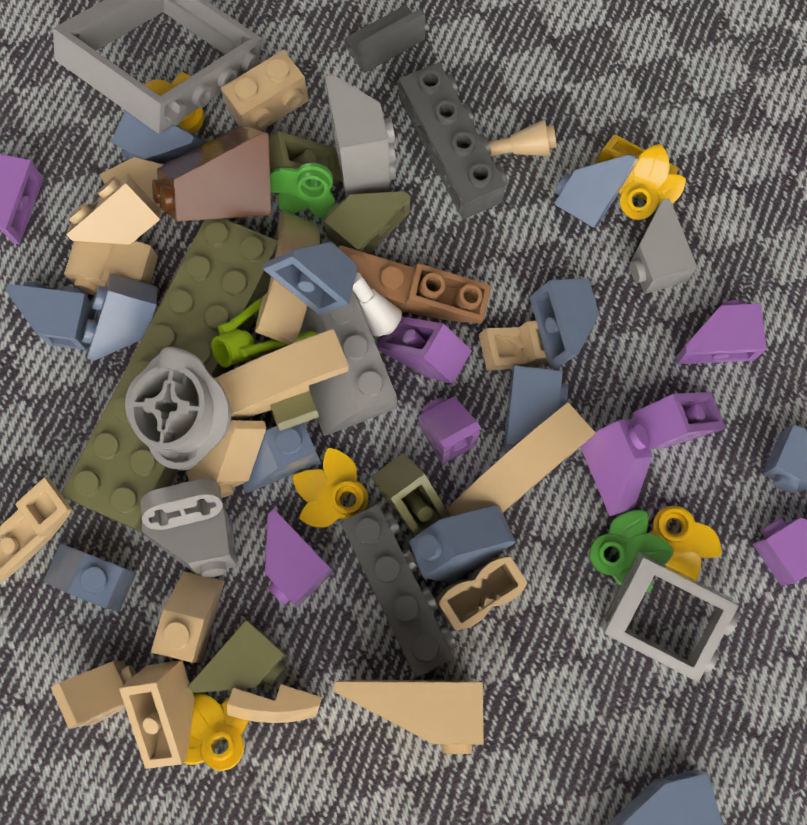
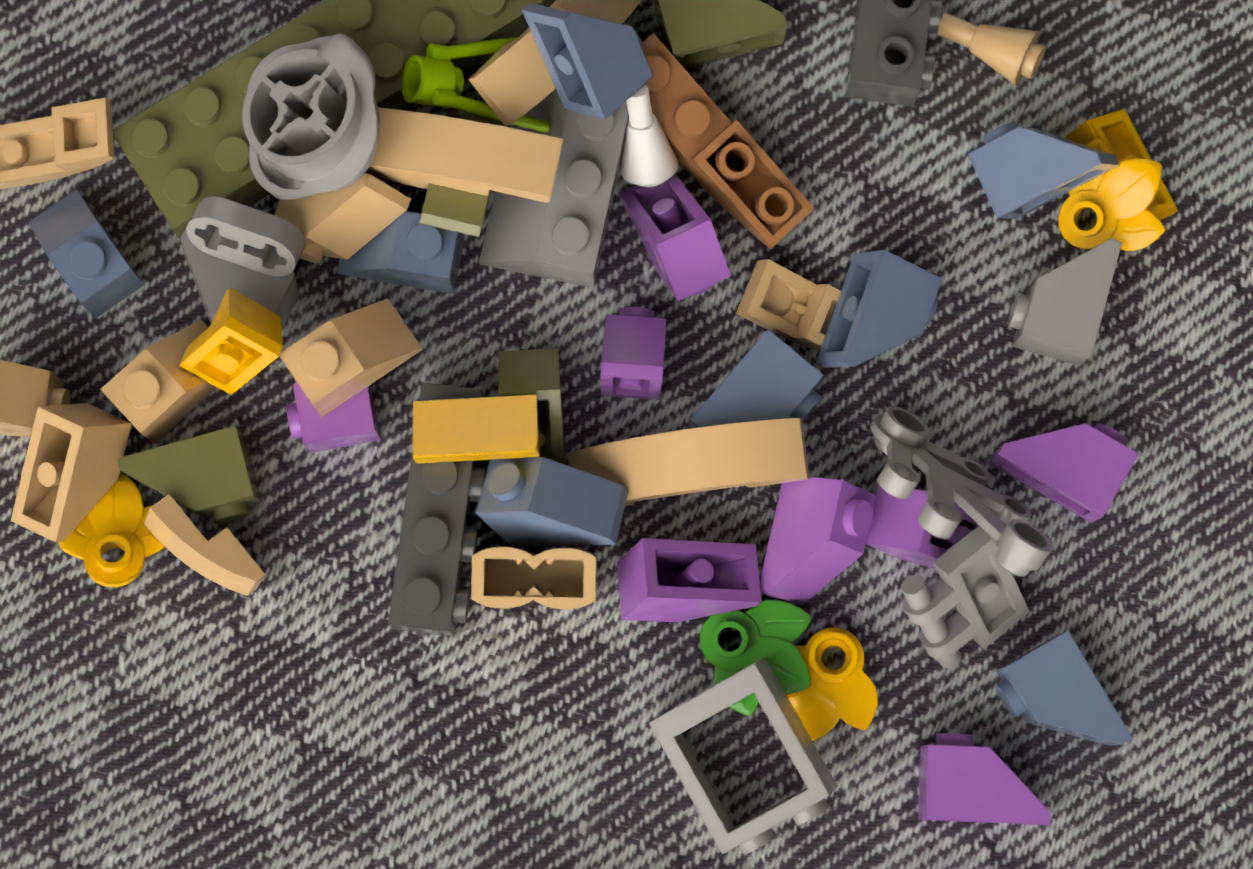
camera: 30 degrees right, 5 degrees up
(217, 572) = (236, 344): none -> yellow slope
(288, 533) = (349, 354): none -> tan slope
(326, 488) = (444, 332): yellow plate -> none
(392, 527) = (475, 429): none -> yellow slope
(432, 709) = (385, 674): tan slope -> none
(565, 536) = (686, 579): none -> medium lavender slope
(674, 381) = (955, 480): none -> light grey plant
(729, 443) = (979, 589): none -> light grey plate

